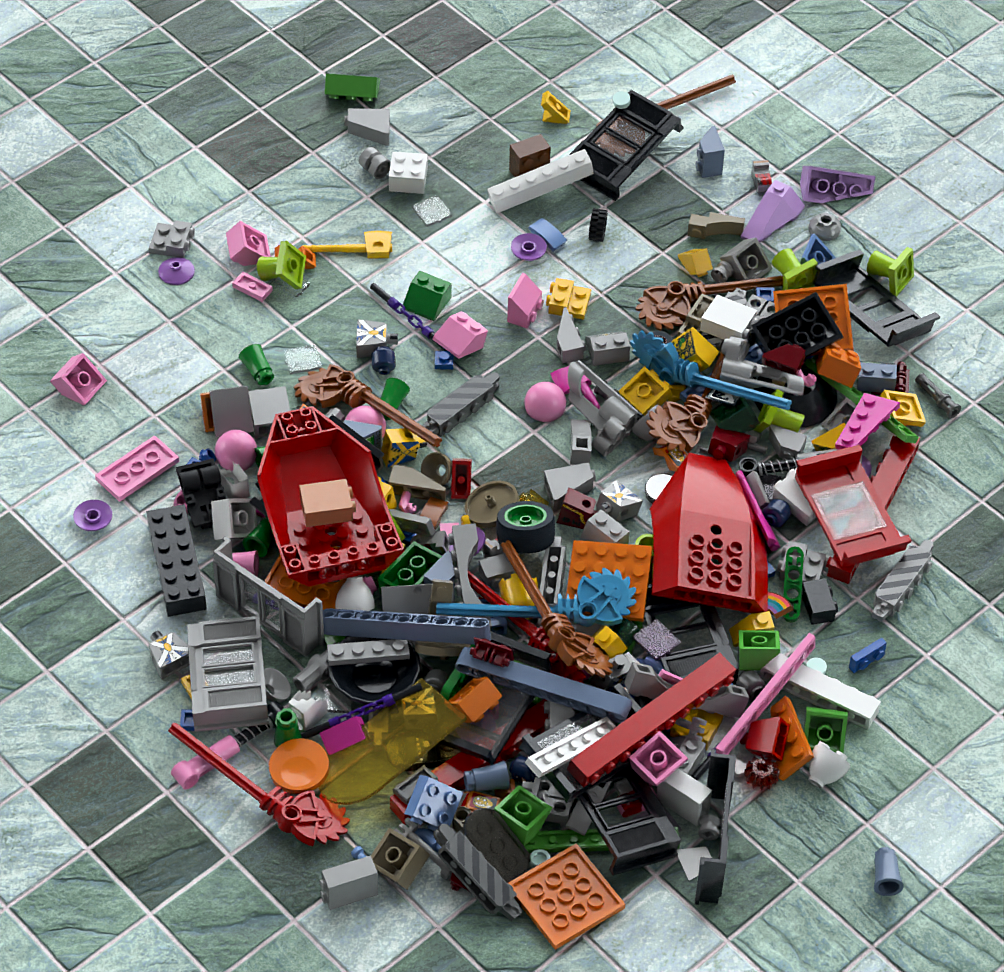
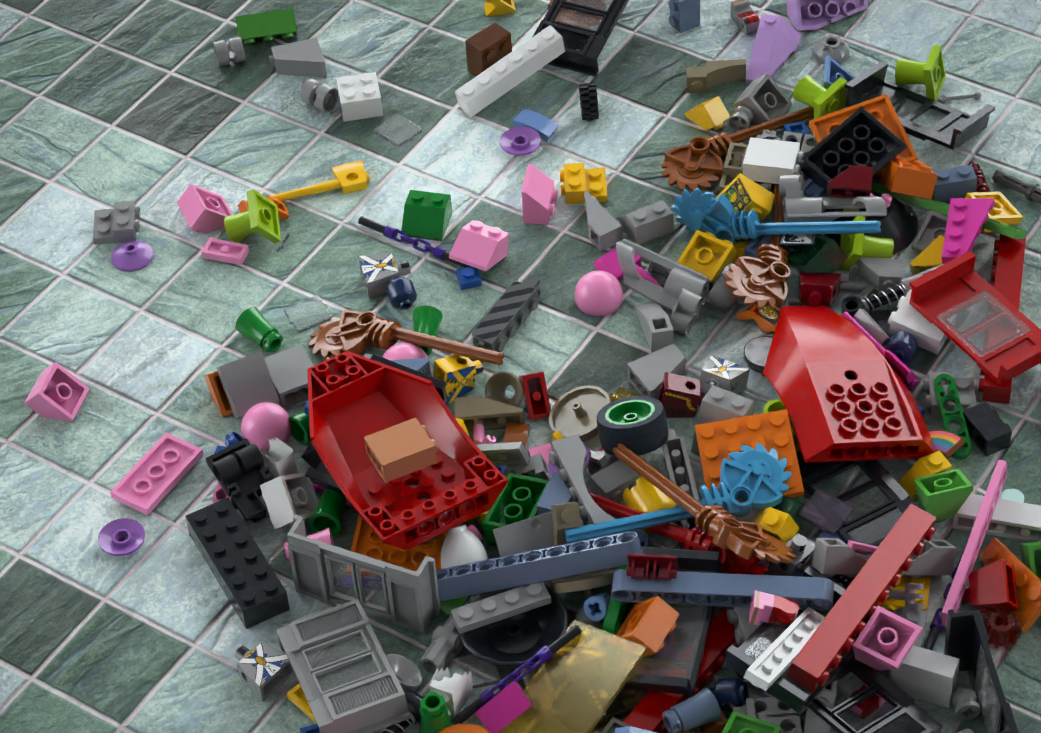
camera: 10 degrees left, 5 degrees down
(313, 103) = (229, 51): none -> light grey wheel
(442, 671) = (597, 606): none -> medium blue bush
(576, 712) = (772, 610): none -> leg
(751, 682) = (951, 532): dark grey head -> none
(903, 296) = (943, 99): none -> light grey hinge

